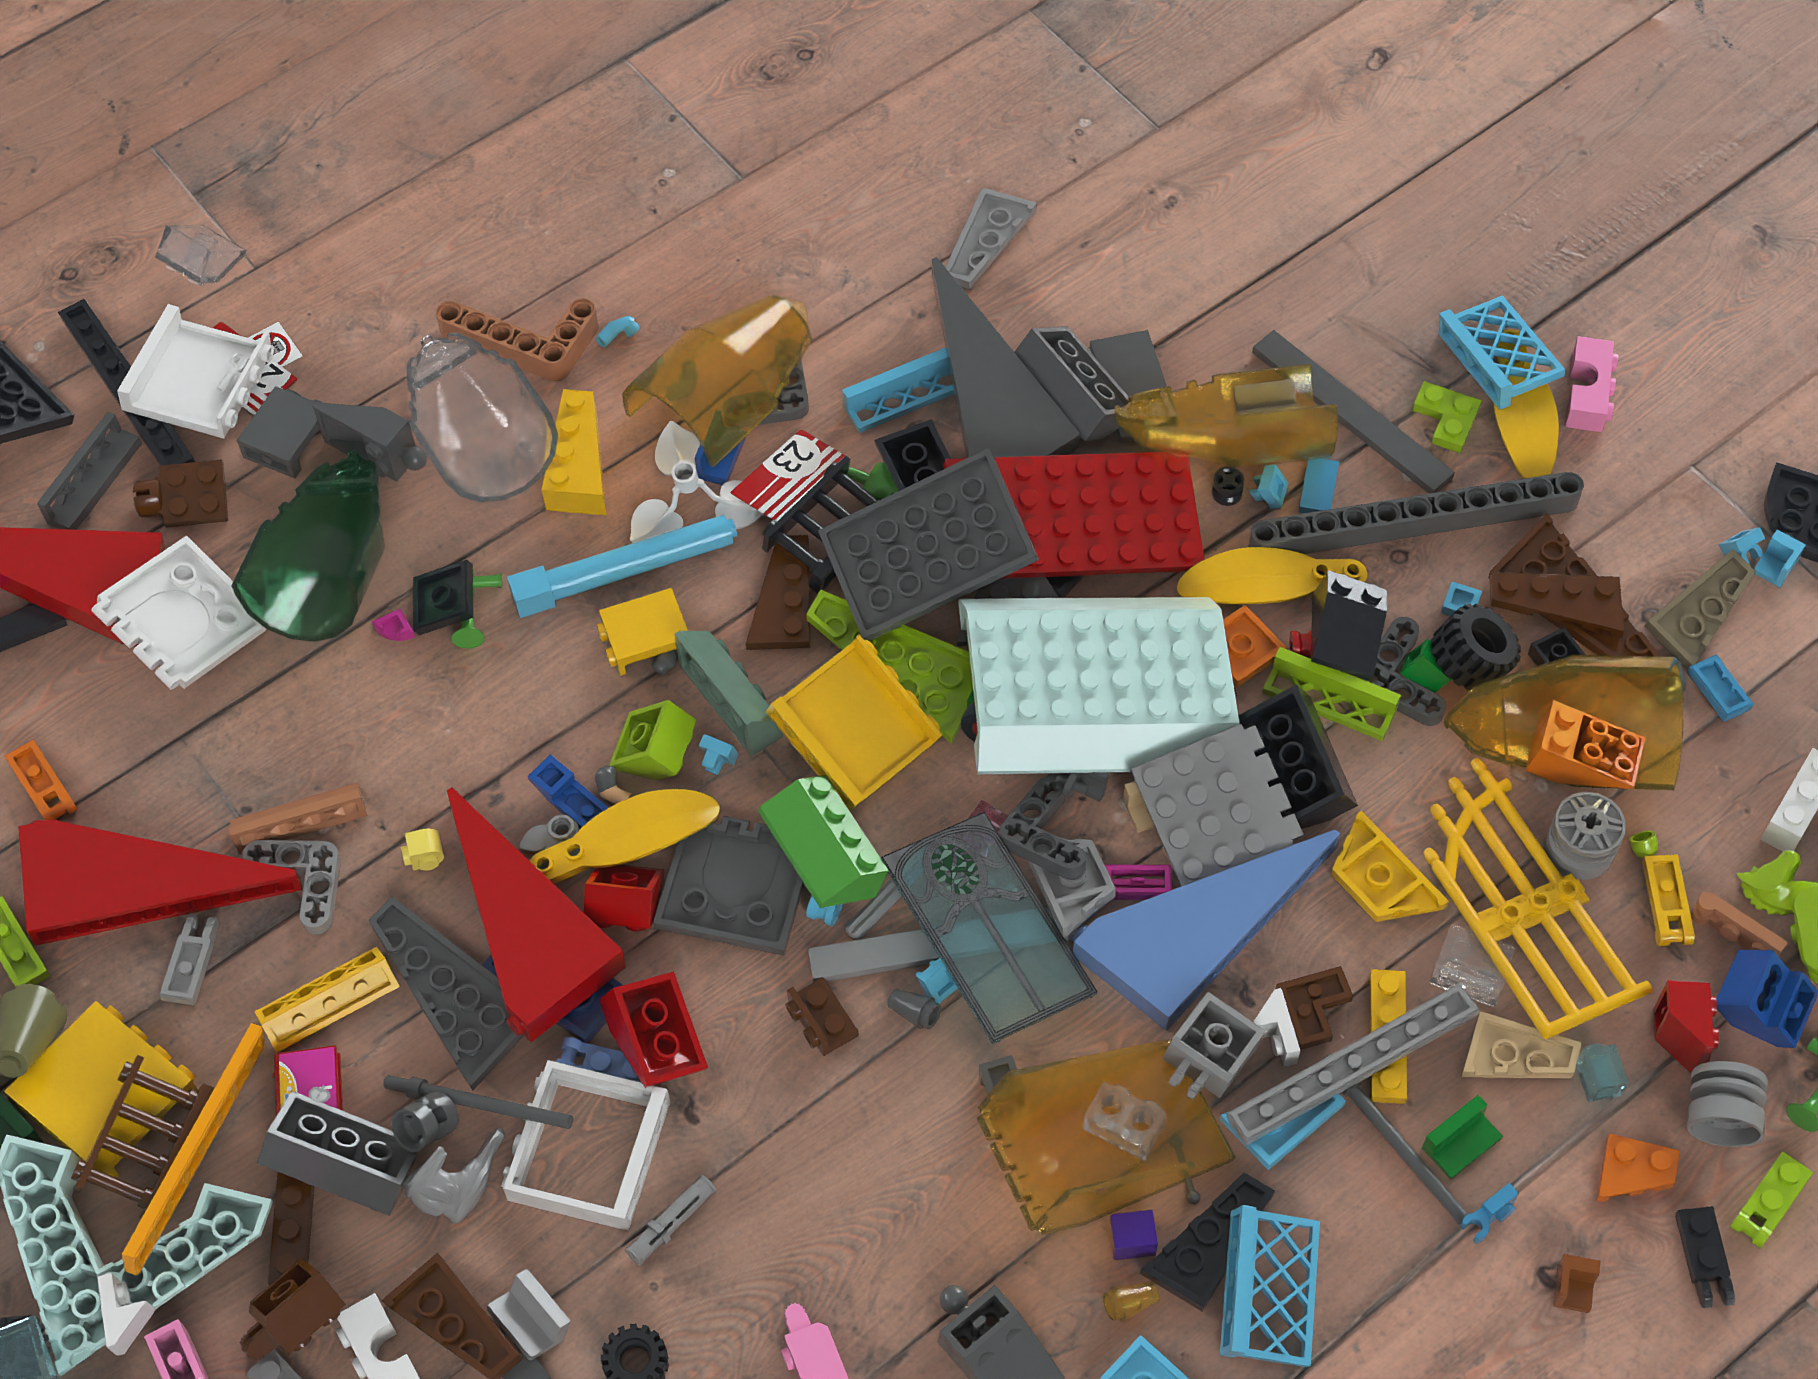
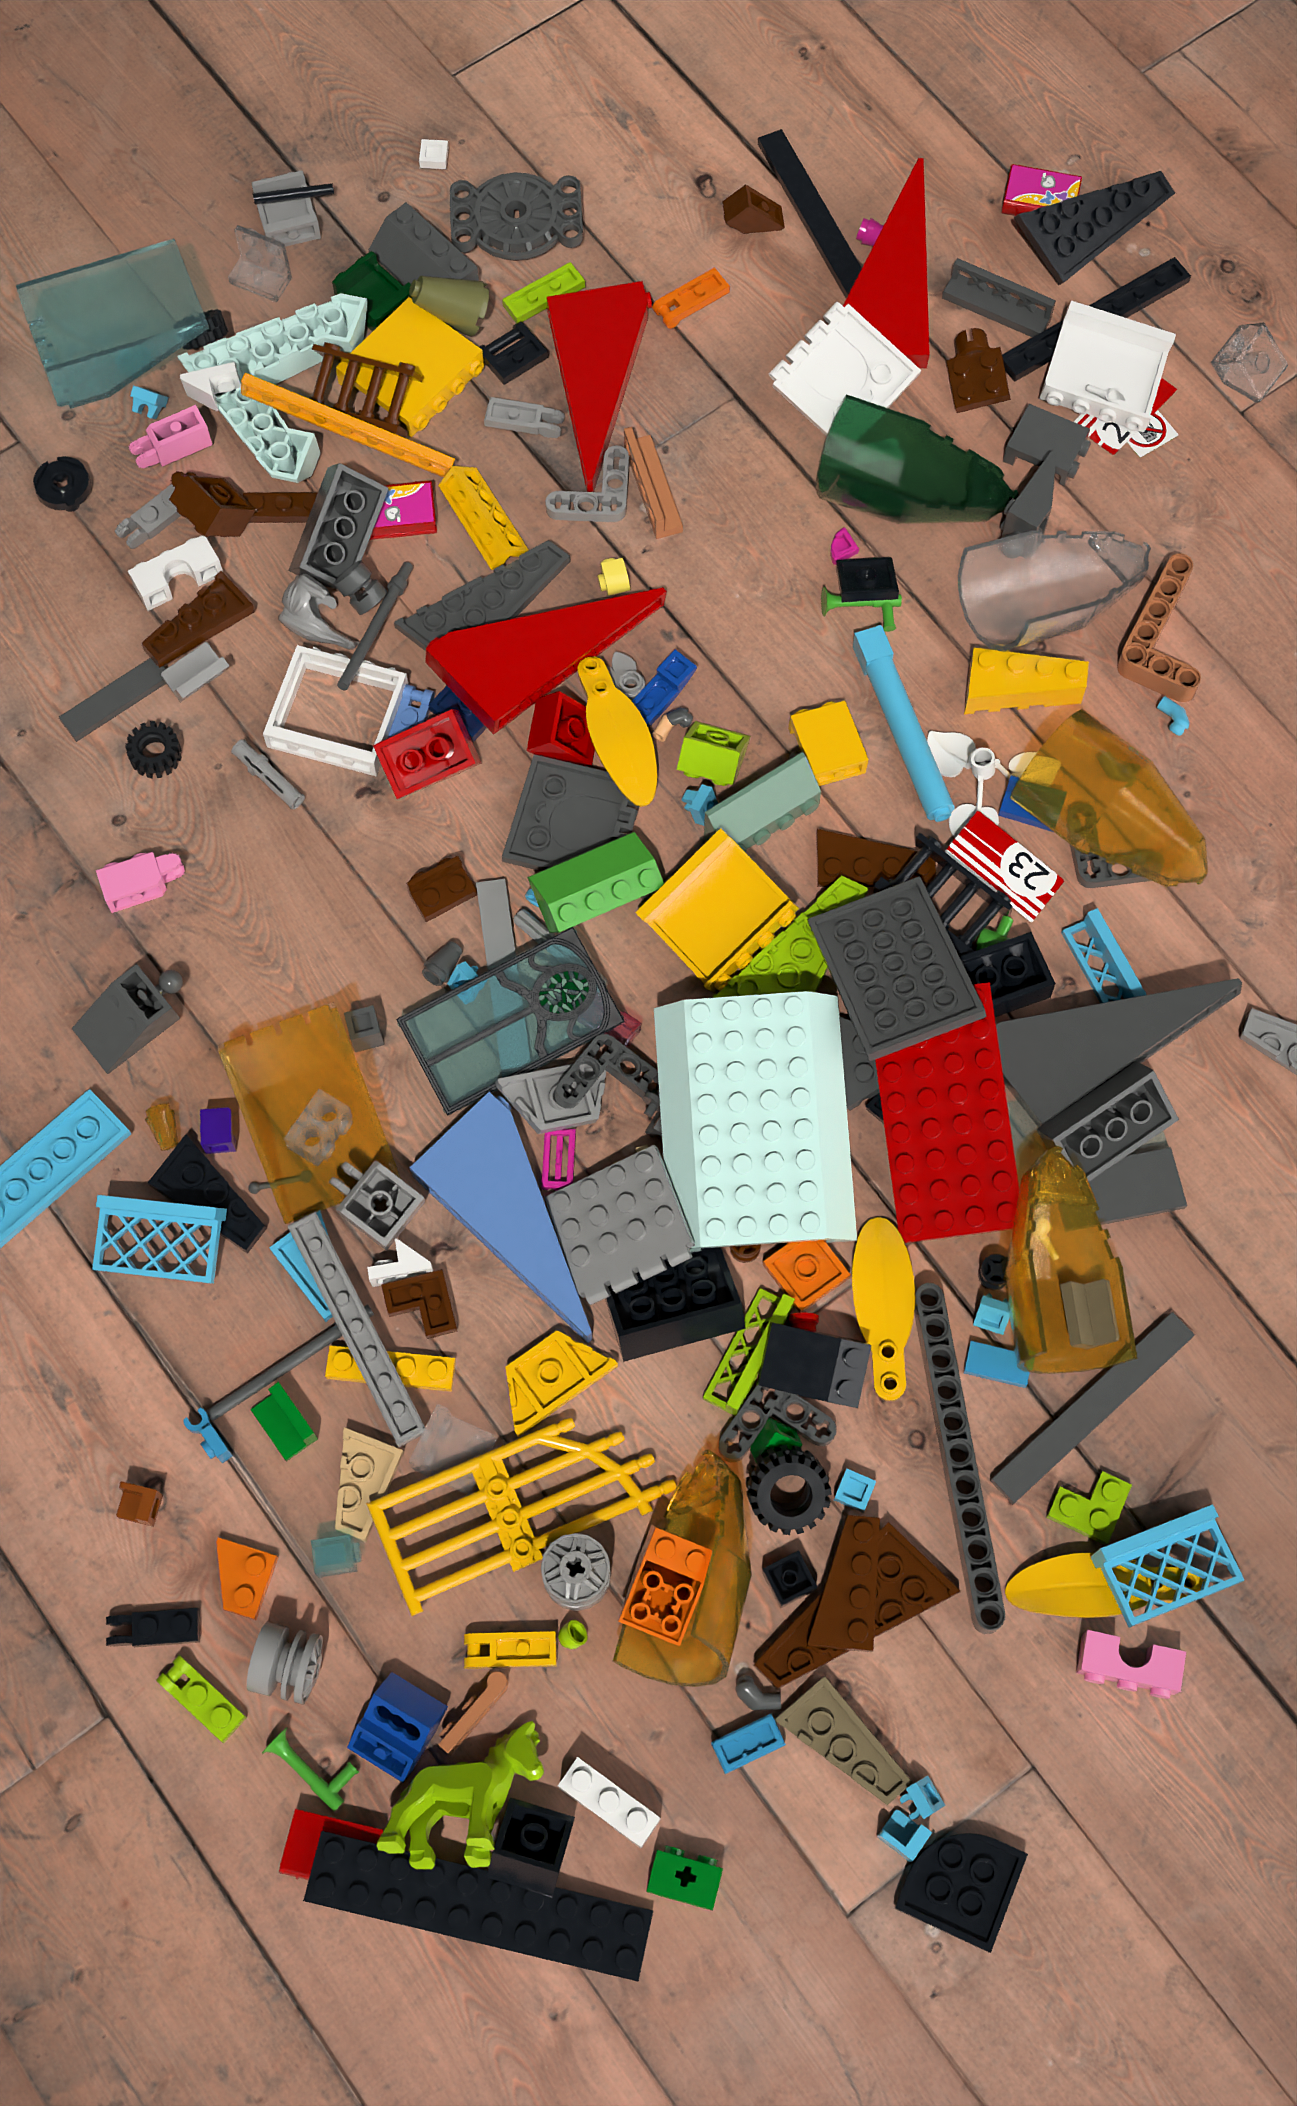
camera: 90 degrees right, 10 degrees up
(102, 969) = (517, 357): none -> black plate
(1685, 1022) = (369, 1636): red slope -> none

